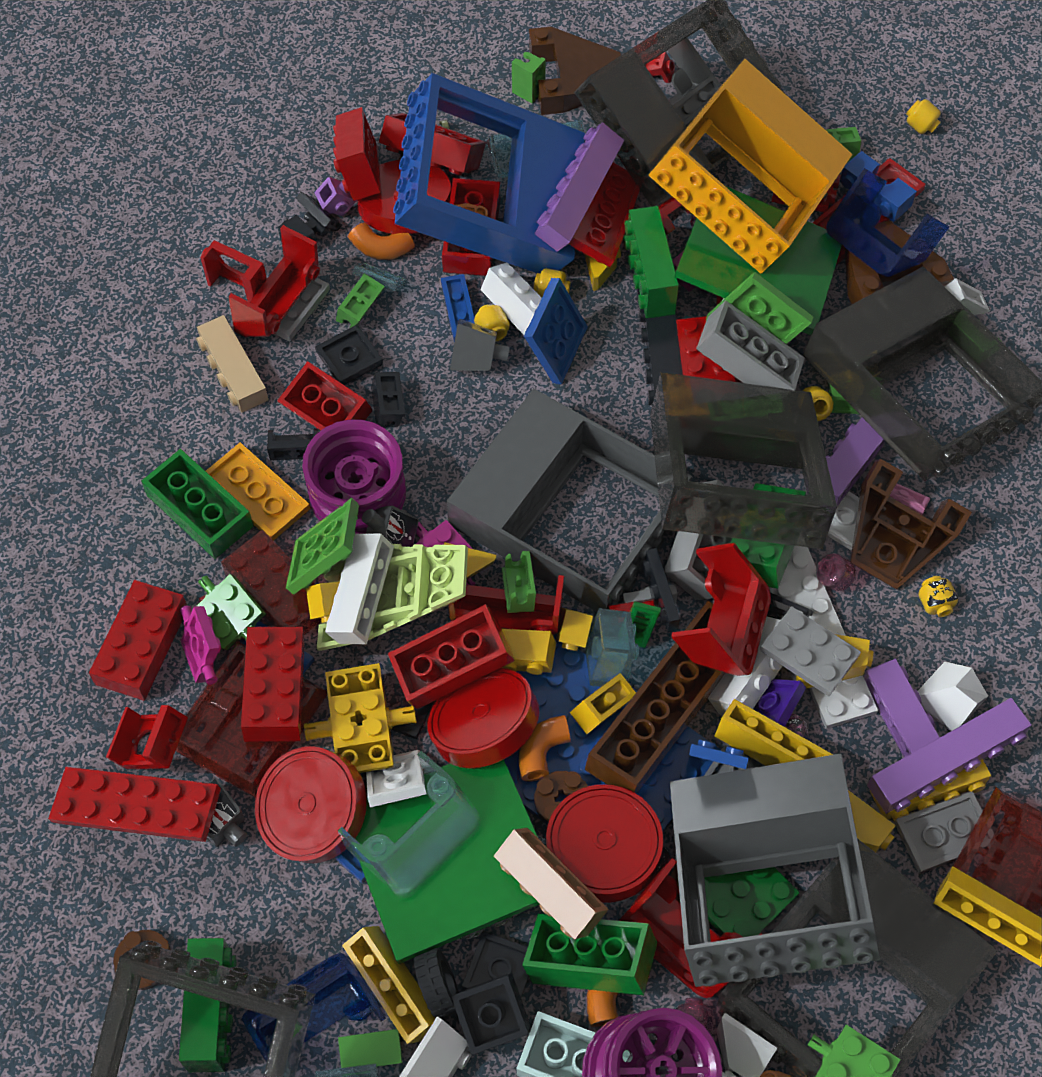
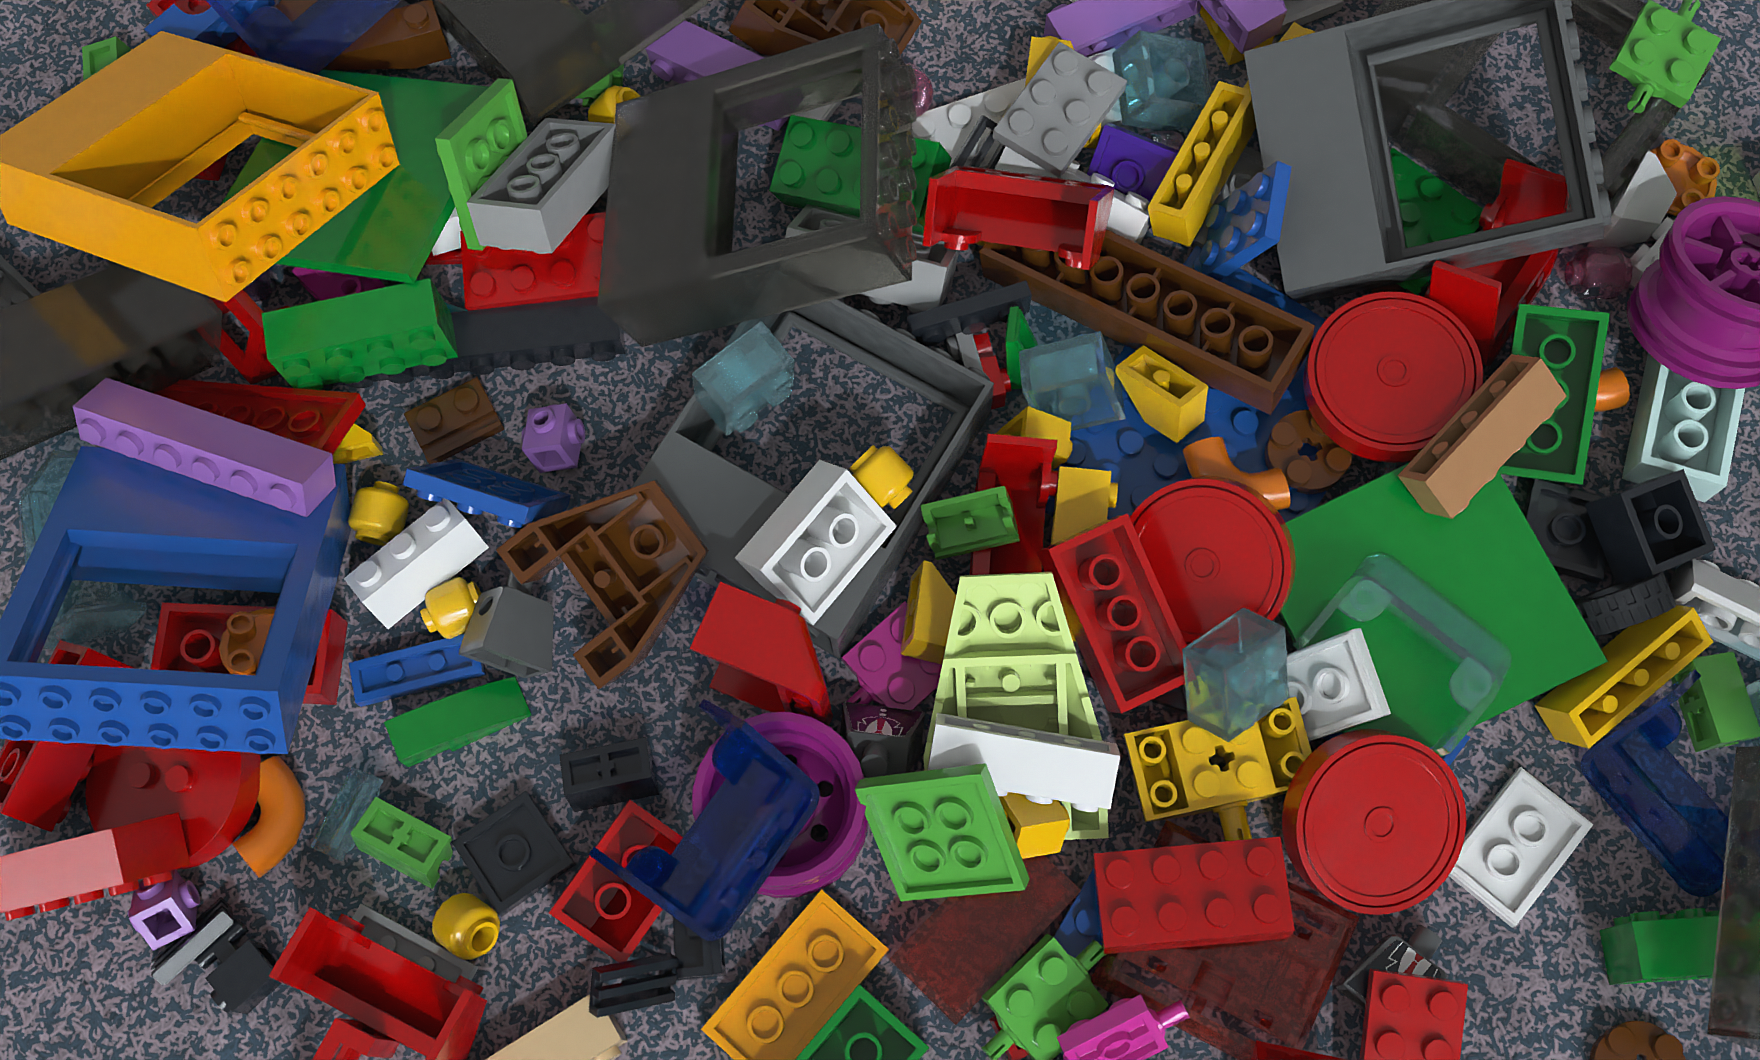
camera: 90 degrees left, 10 degrees up
(263, 407) = (632, 992): none -> black tile
(290, 906) = (1518, 846): none -> white tile
(310, 331) = (466, 926): none -> yellow head
(320, 431) = (732, 840): none -> clear blue windscreen
(404, 718) = (1236, 674): none -> clear light blue brick
(426, 326) = (456, 720): none -> green slope
(430, 463) = (763, 654): none -> red windscreen
(502, 397) = (630, 559): none -> reddish brown wedge
(504, 486) = (817, 540): none -> white slope
(544, 523) = (883, 475): none -> yellow head
(594, 369) = (553, 438): none -> medium lavender brick
(606, 446) = (744, 379): none -> clear light blue brick
(611, 324) = (454, 421): none -> reddish brown plate
(843, 727) = (1164, 81): none -> clear light blue brick

